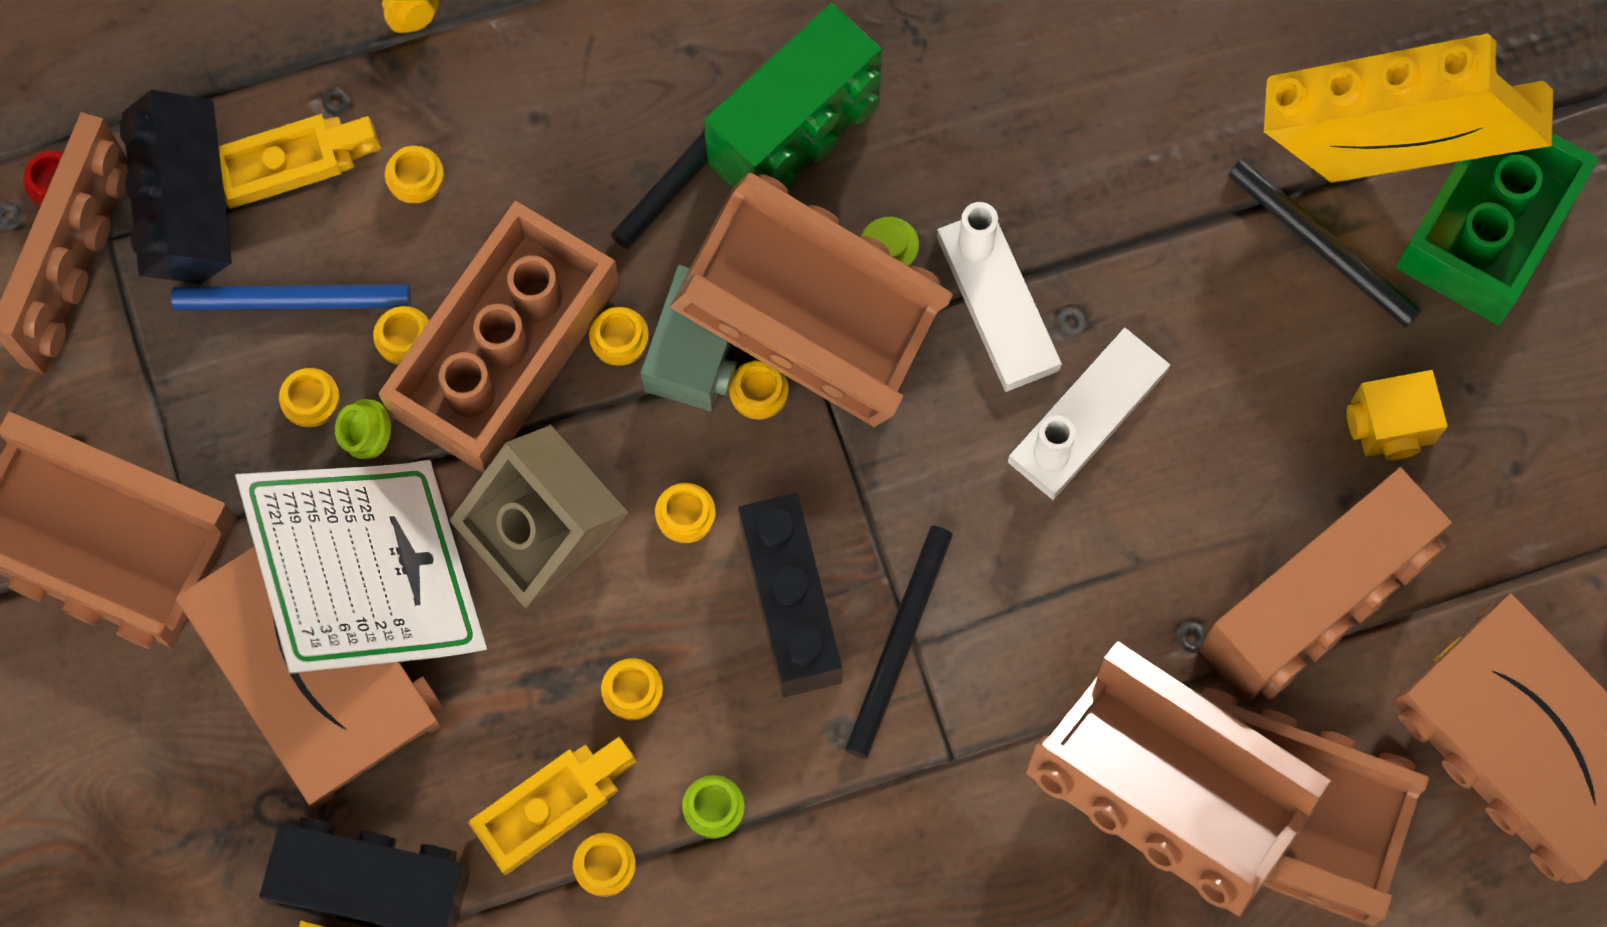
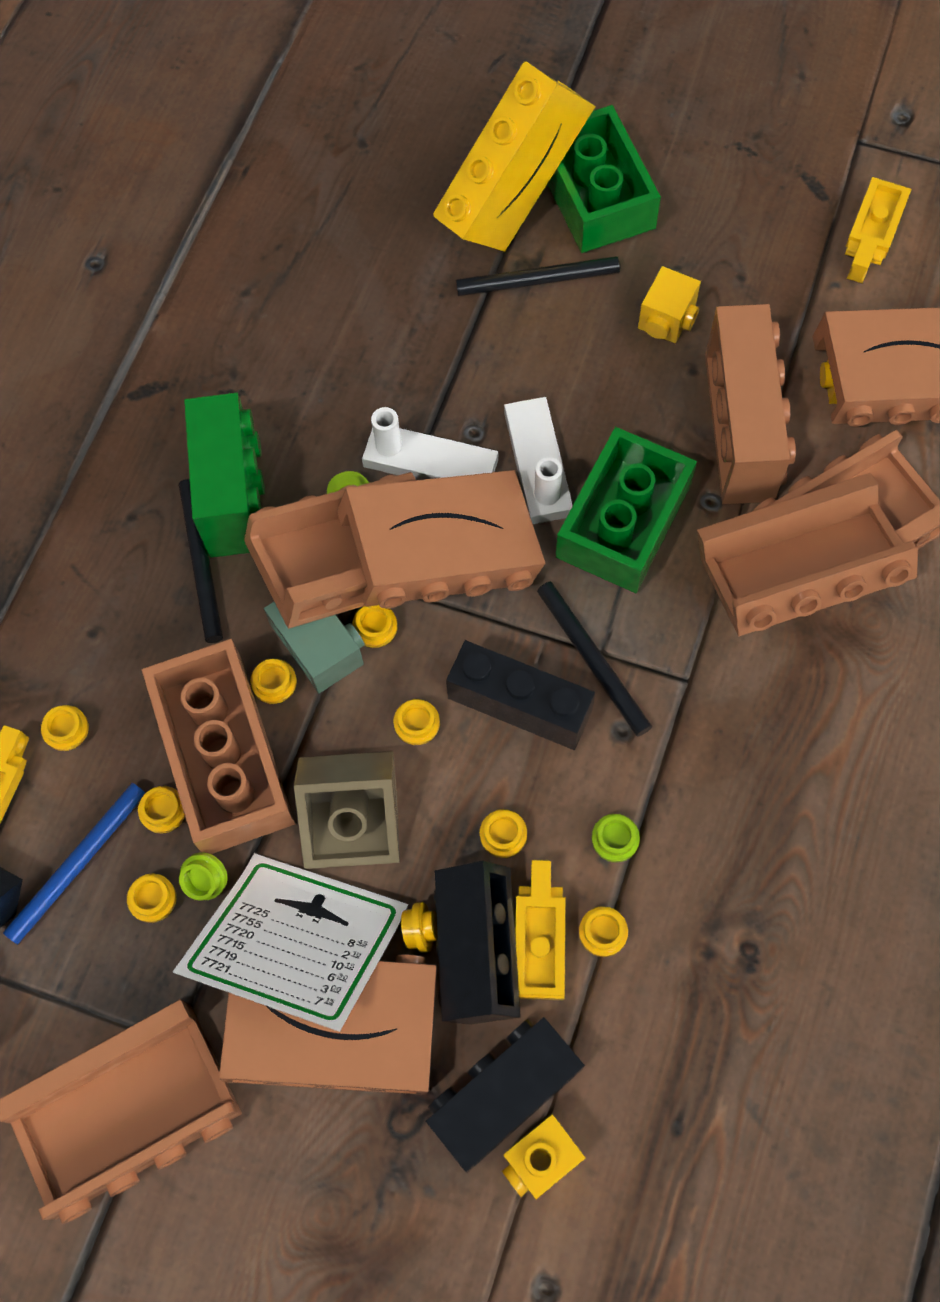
camera: 50 degrees left, 5 degrees down
(470, 678) = (419, 927): none -> yellow plate
(492, 744) = (476, 943): none -> black brick
(897, 383) = (442, 537): none -> nougat panel
(1090, 549) = (625, 509): none -> green brick

